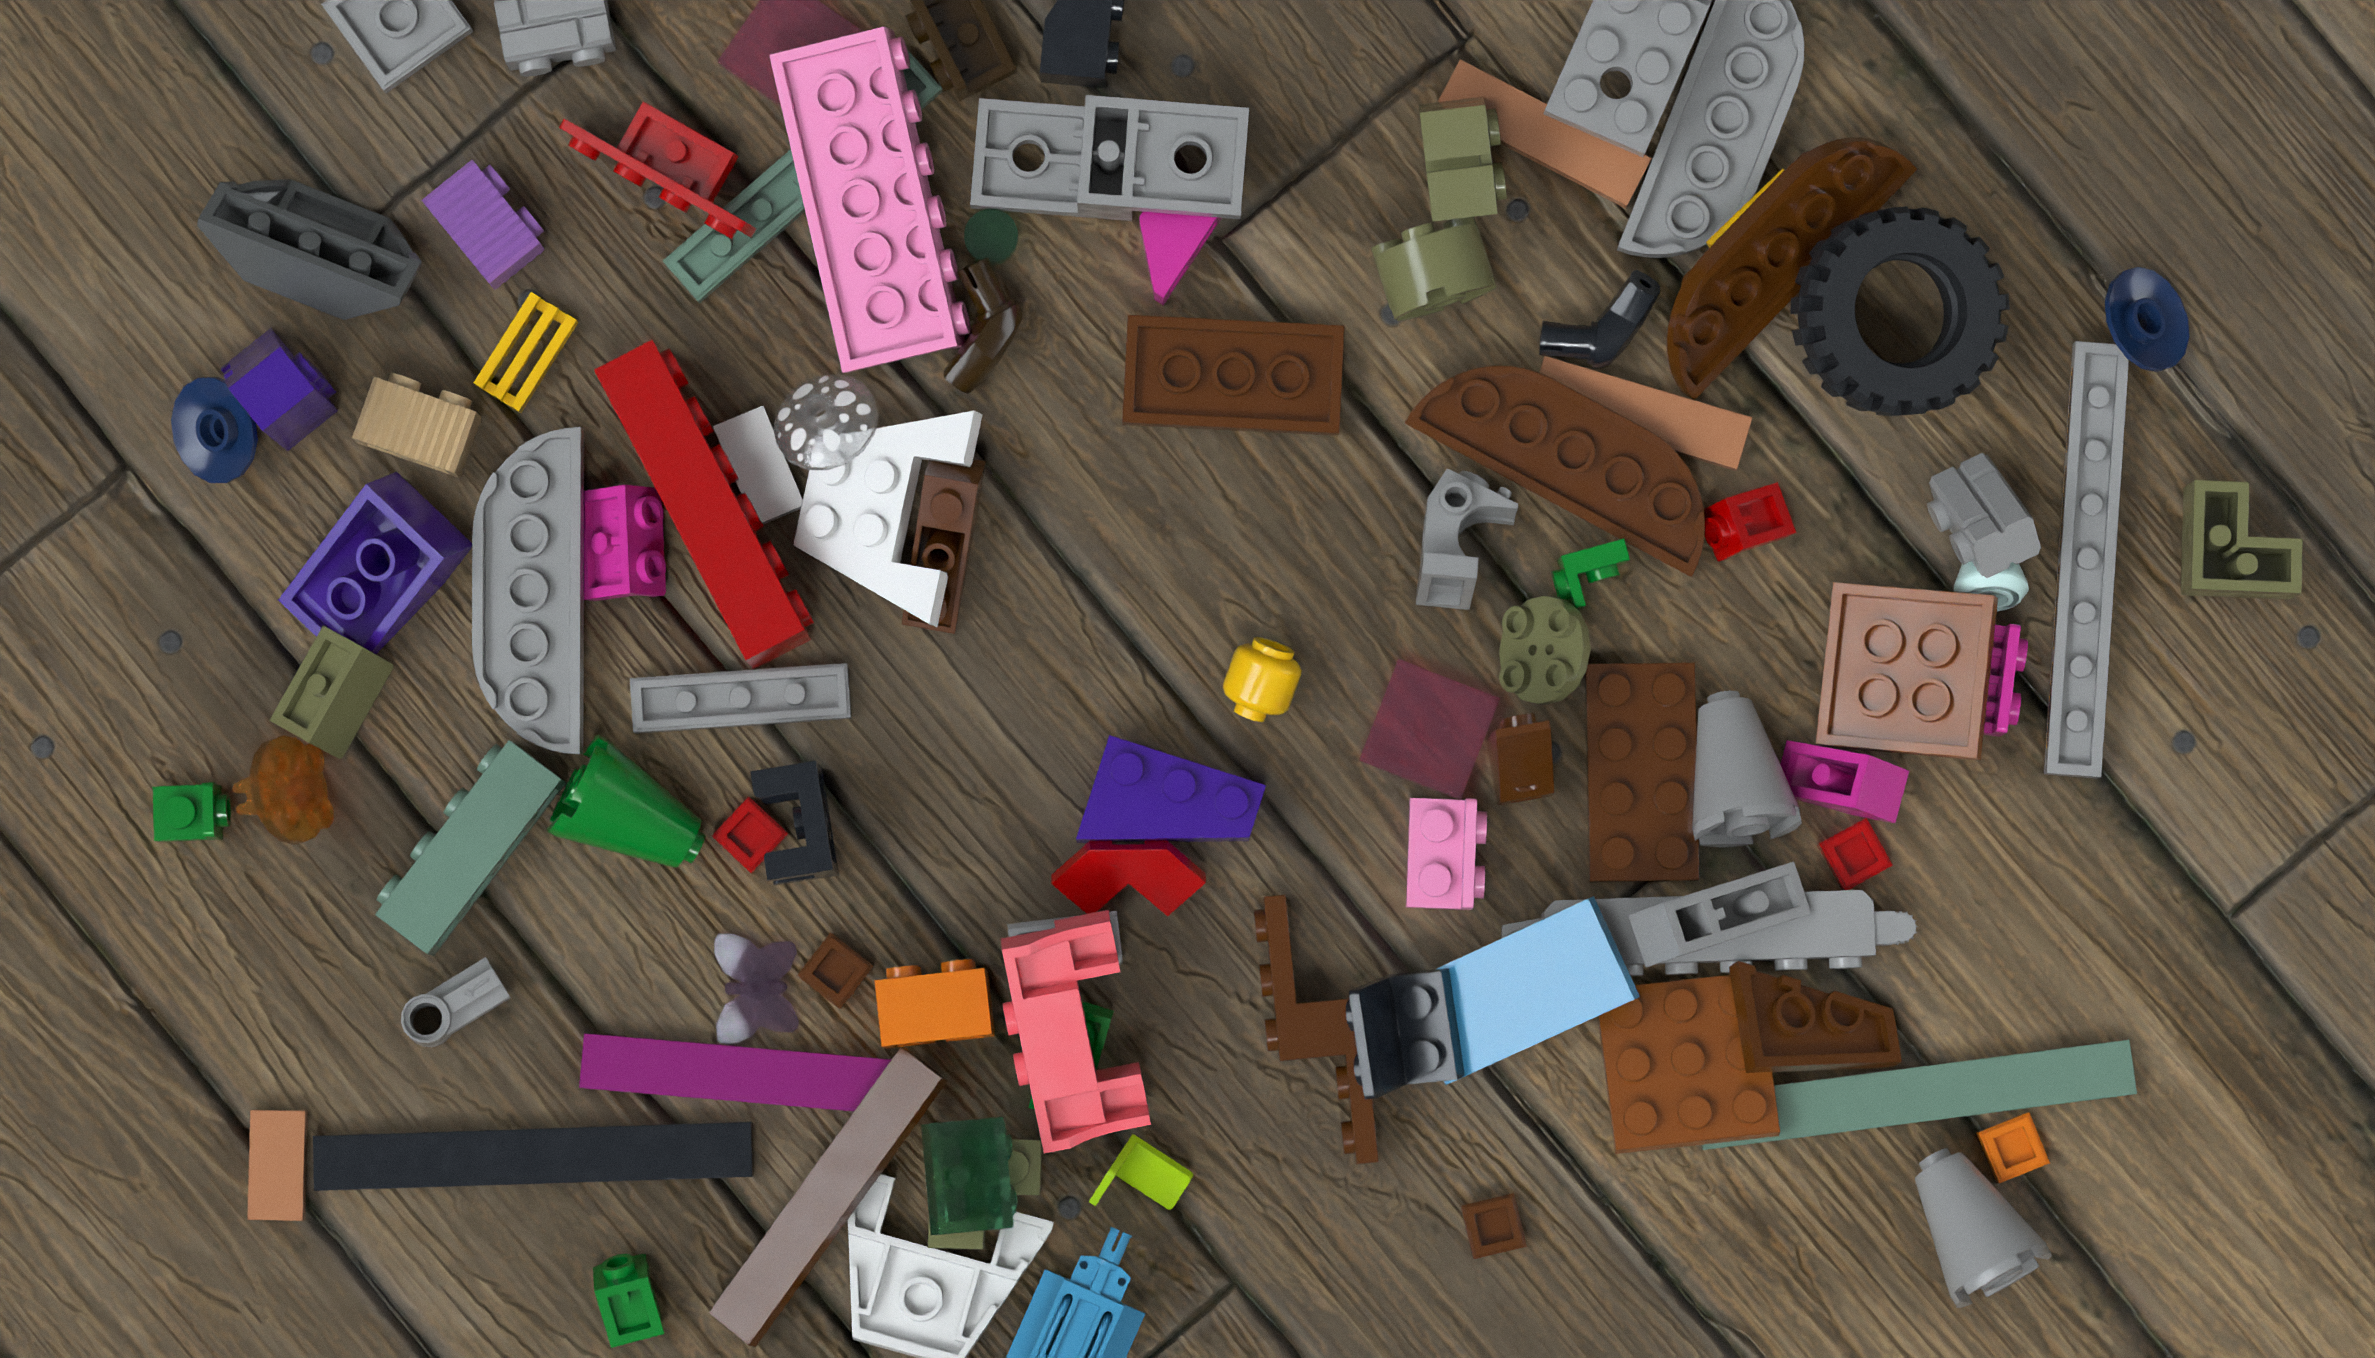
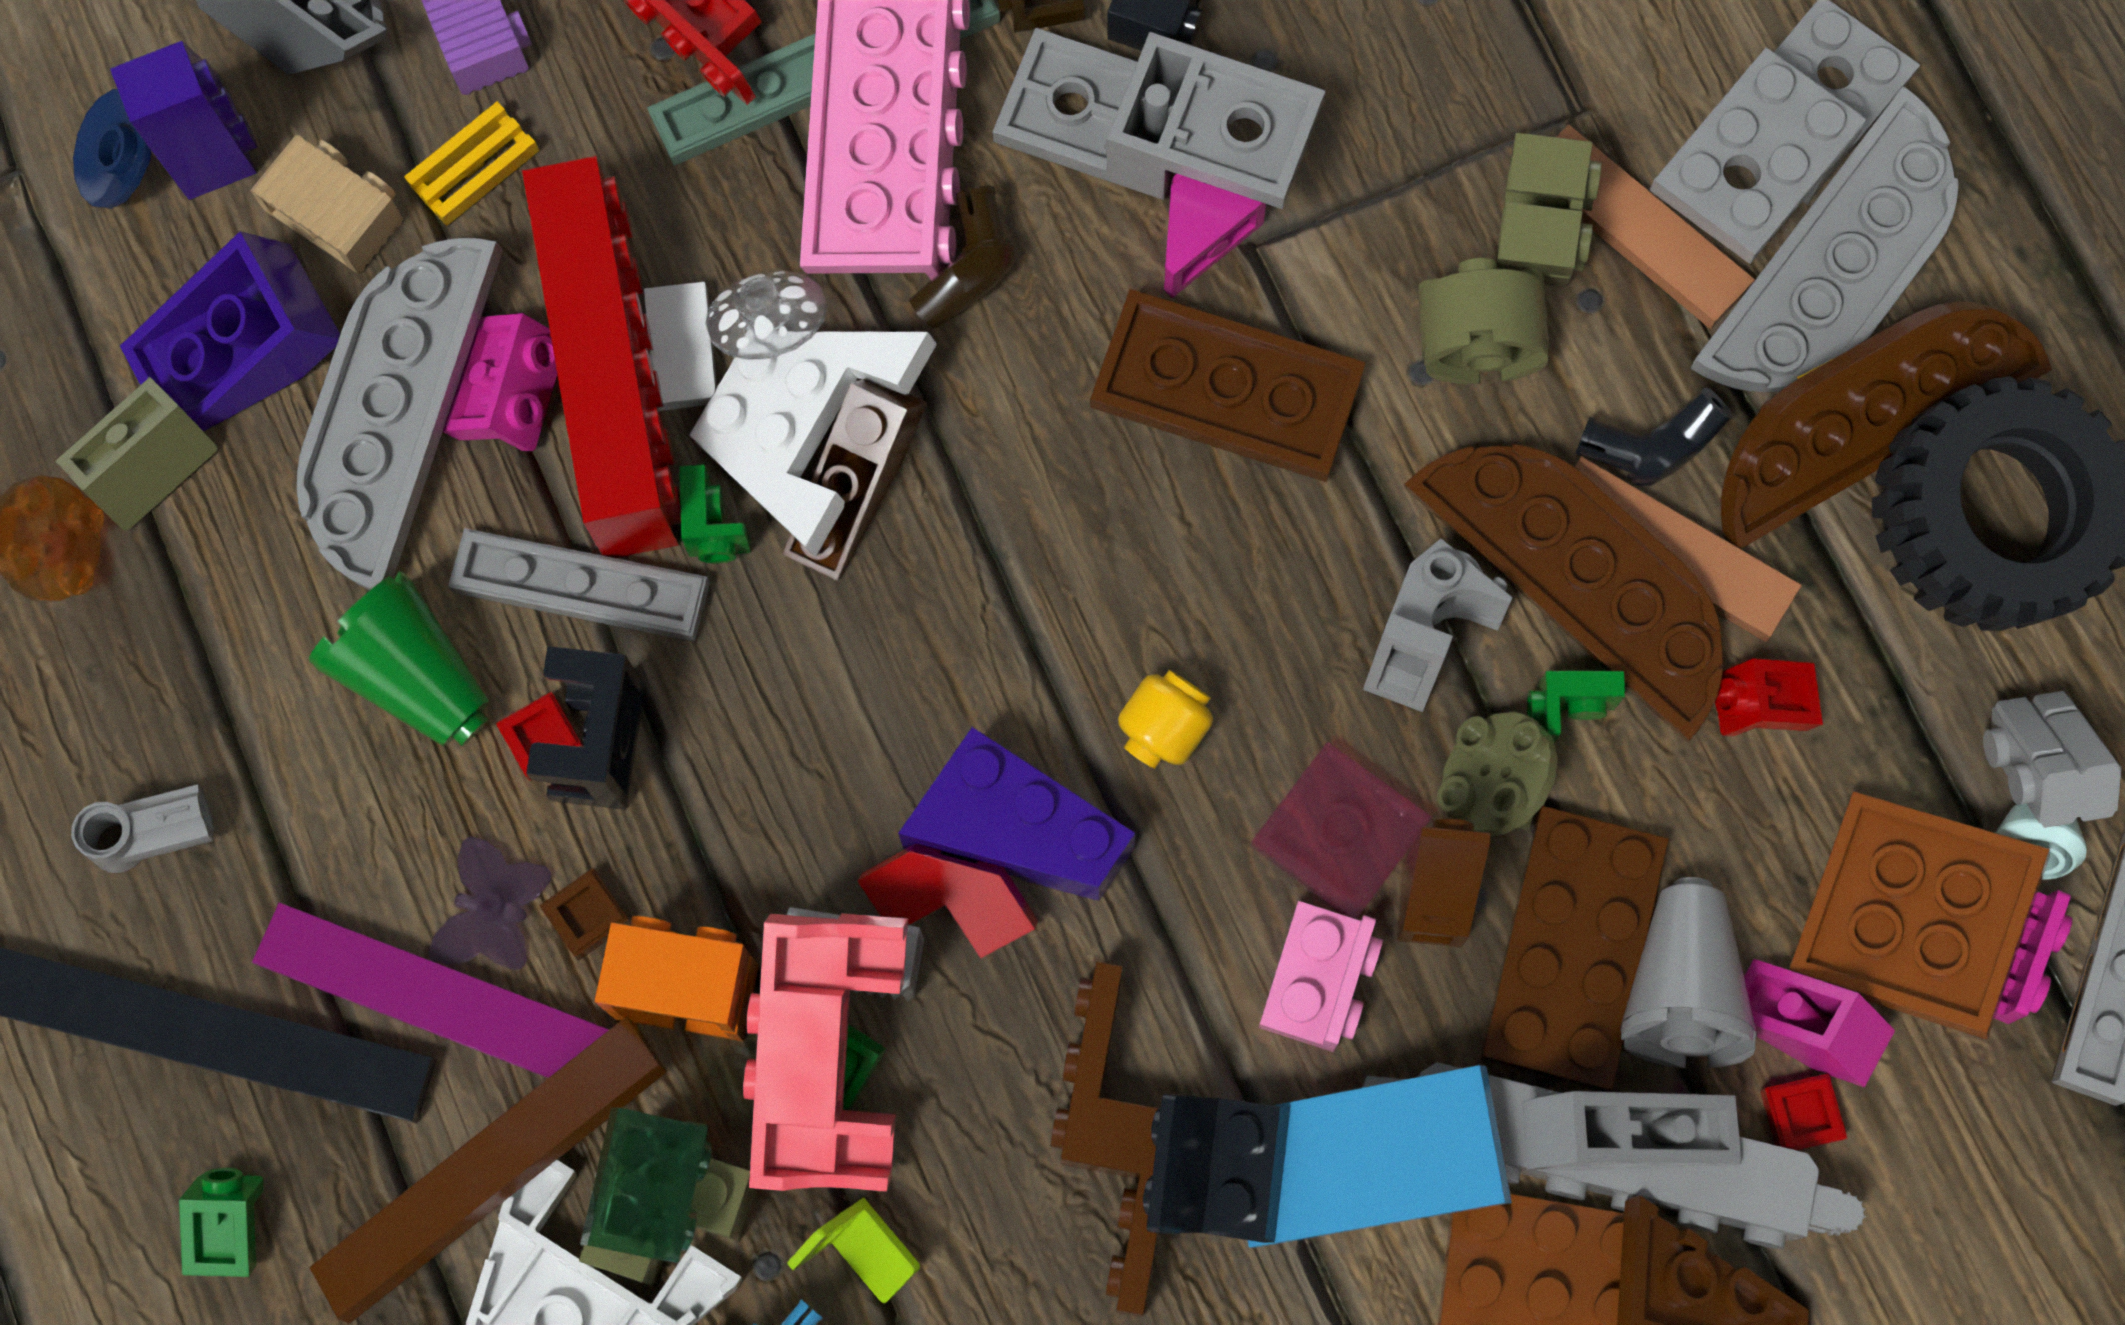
camera: 20 degrees right, 10 degrees down
(469, 847) = (220, 662): sand green brick -> none
(825, 607) = (702, 507): none -> green bracket
(991, 235) = (1010, 172): clear green tile -> none

